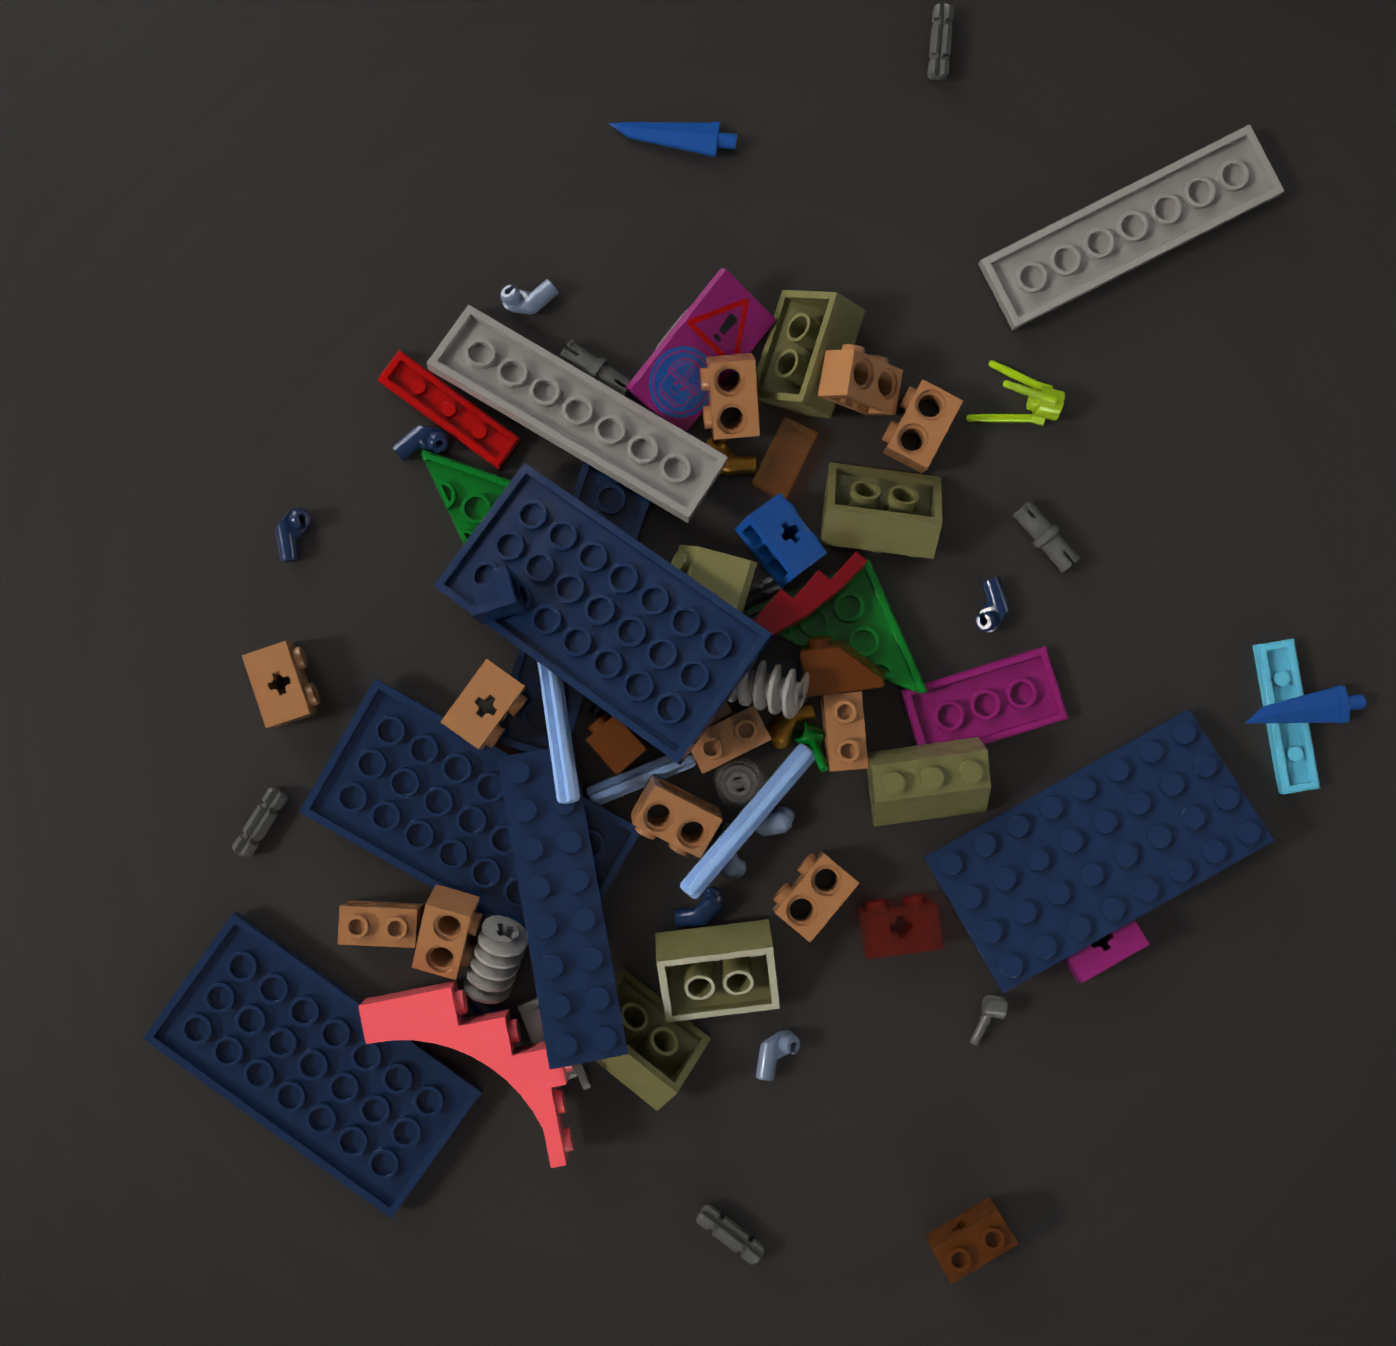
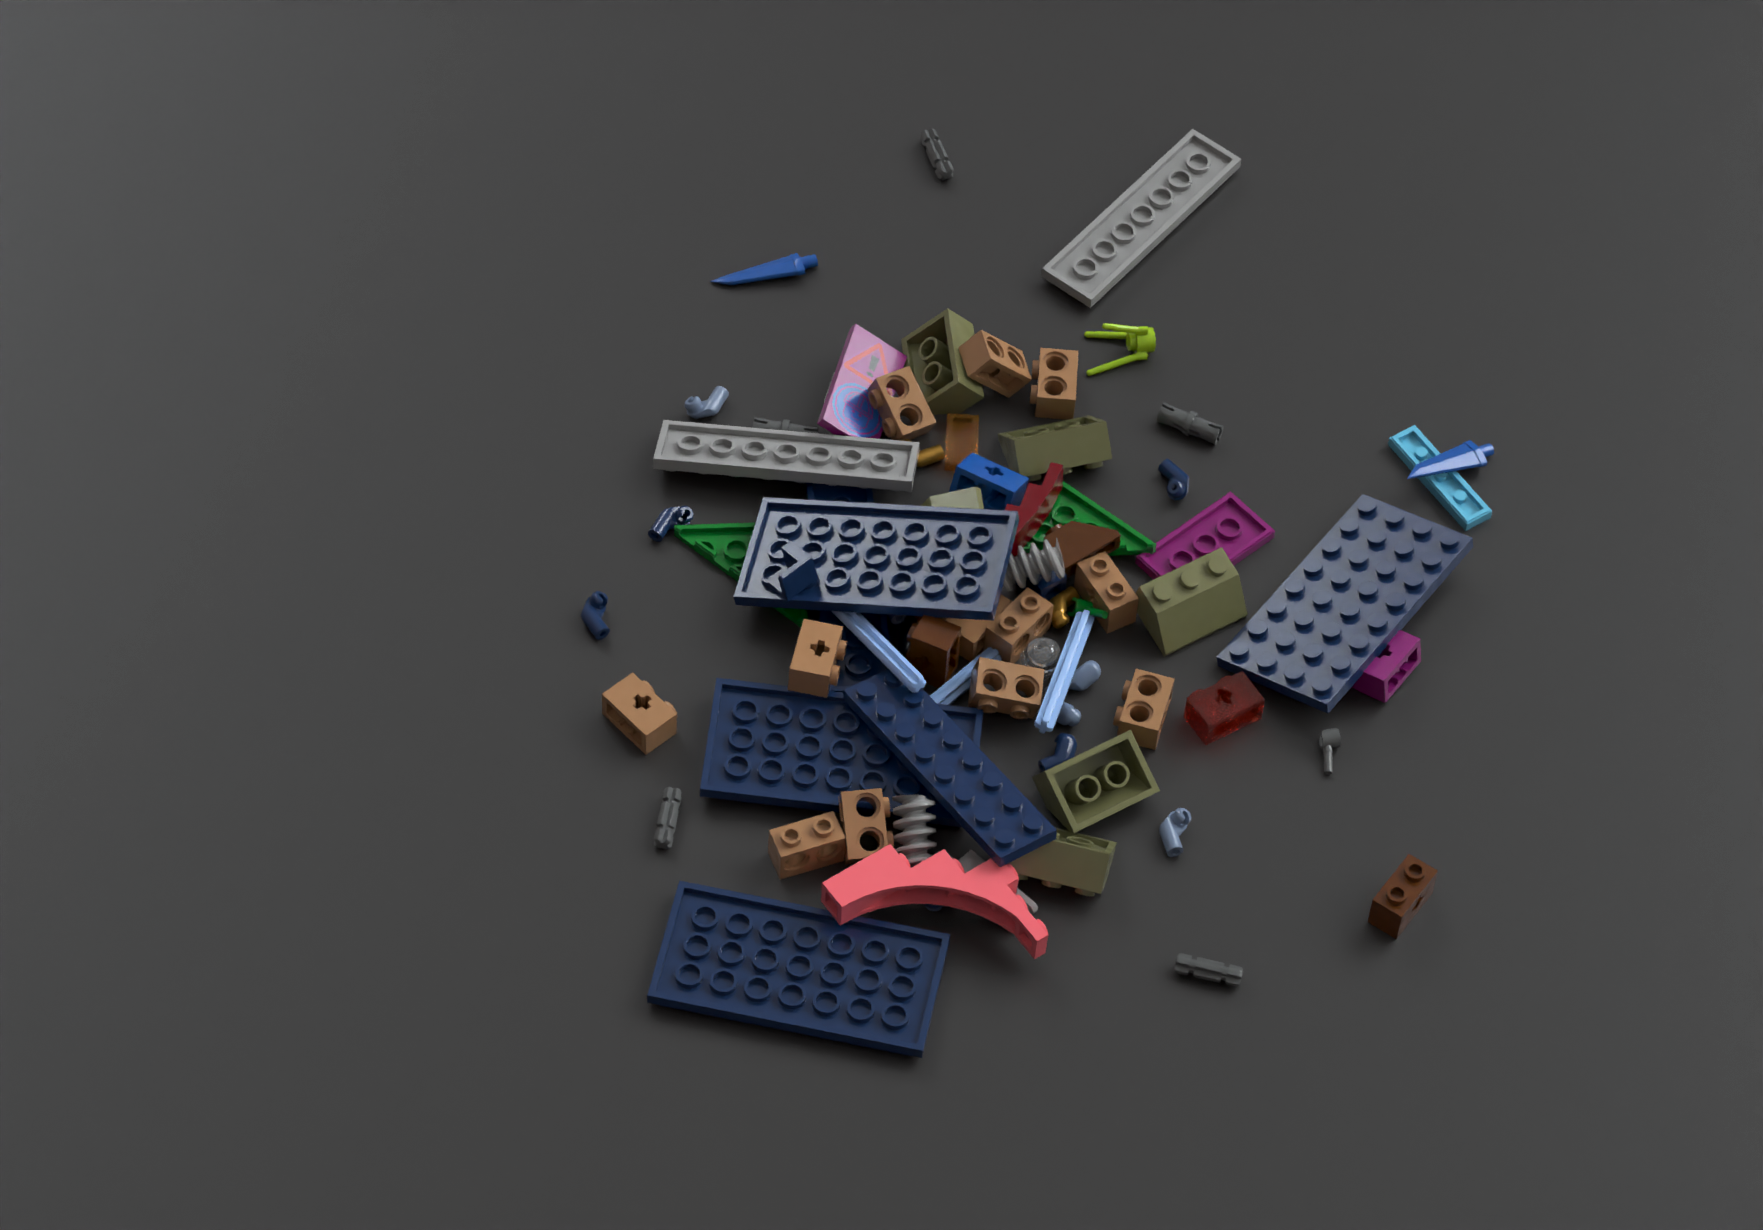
camera: 25 degrees left, 35 degrees down
(449, 410) = (669, 492): red tile -> none

